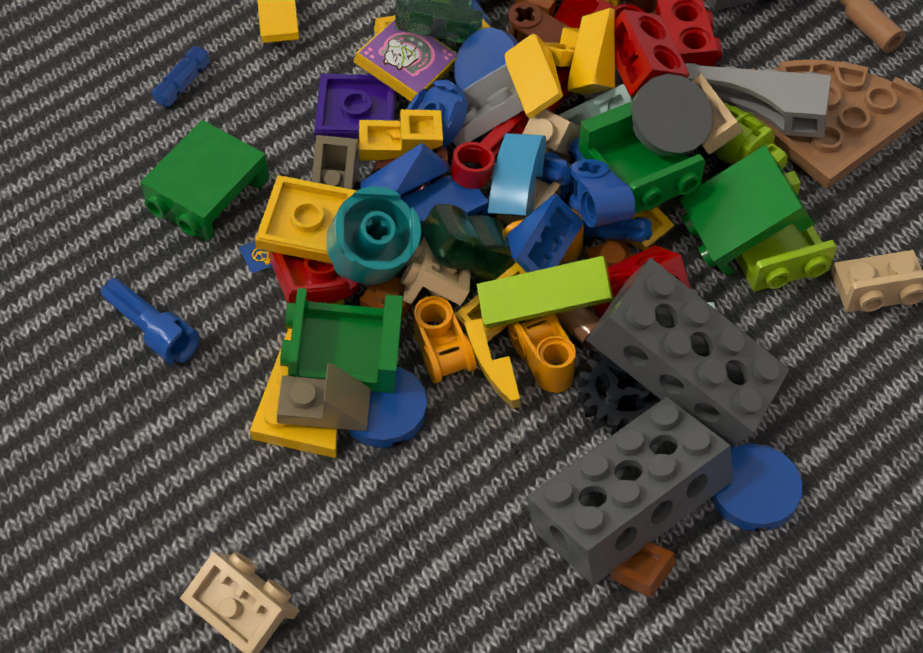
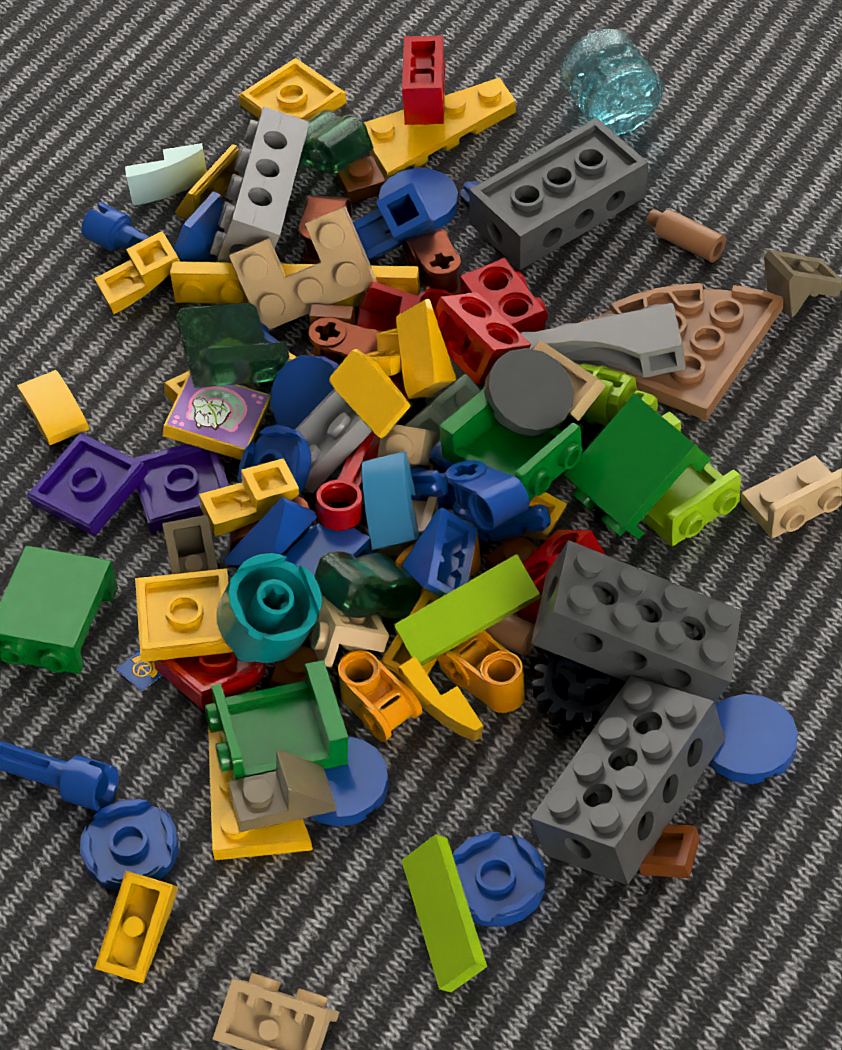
camera: 15 degrees left, 5 degrees down
(159, 475) = (136, 926): none -> yellow slope
(185, 402) = (129, 838): none -> blue tile
(278, 84) = (87, 484): none -> dark purple tile
(421, 555) = (443, 913): none -> lime tile
(481, 539) = (500, 878): none -> blue tile

